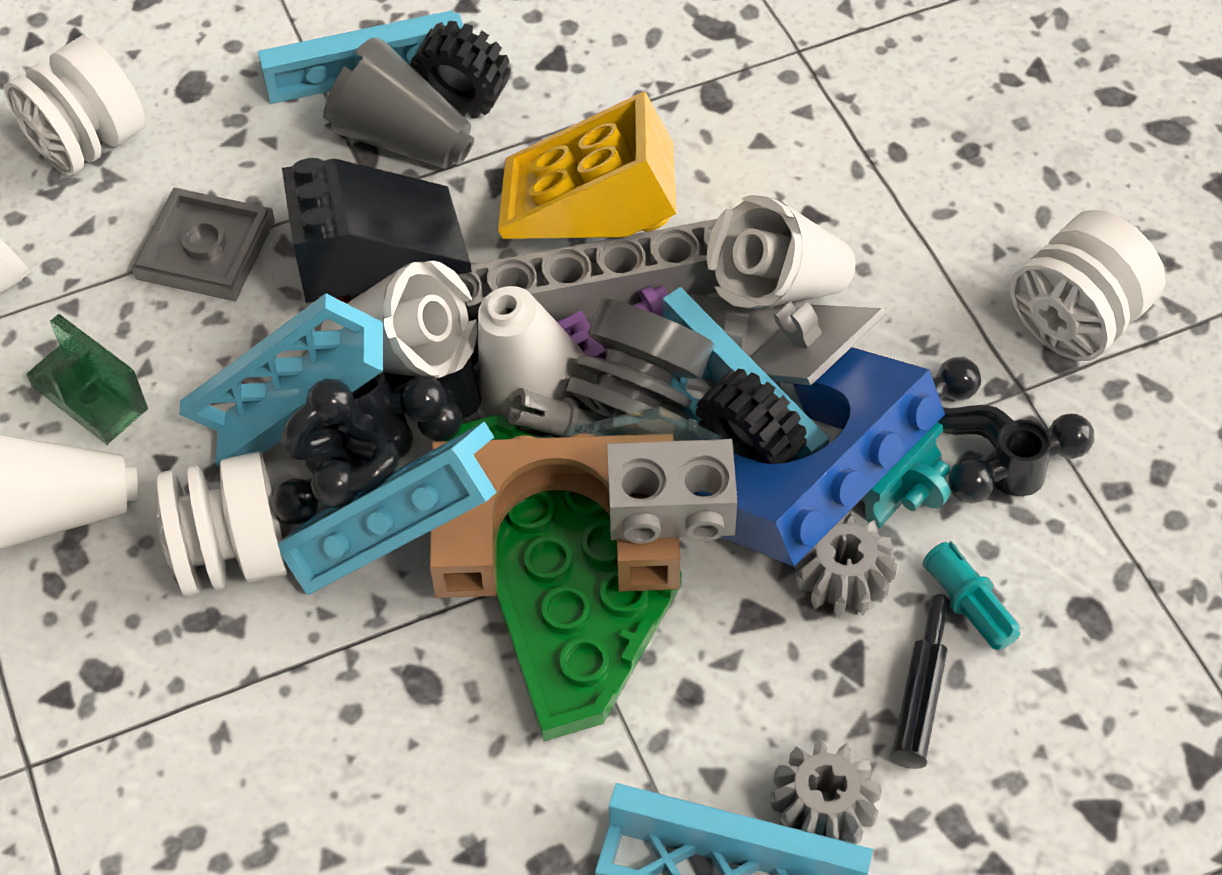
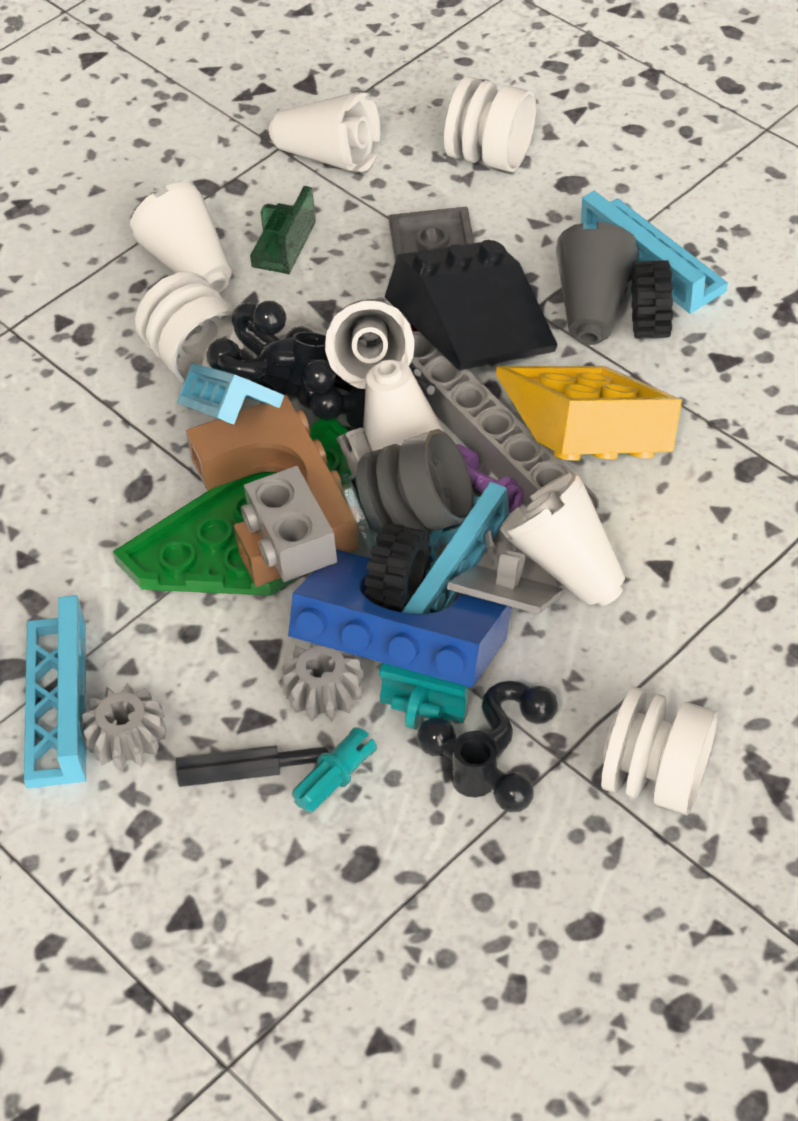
camera: 70 degrees right, 5 degrees down
(264, 408) = (304, 295): medium azure fence -> none

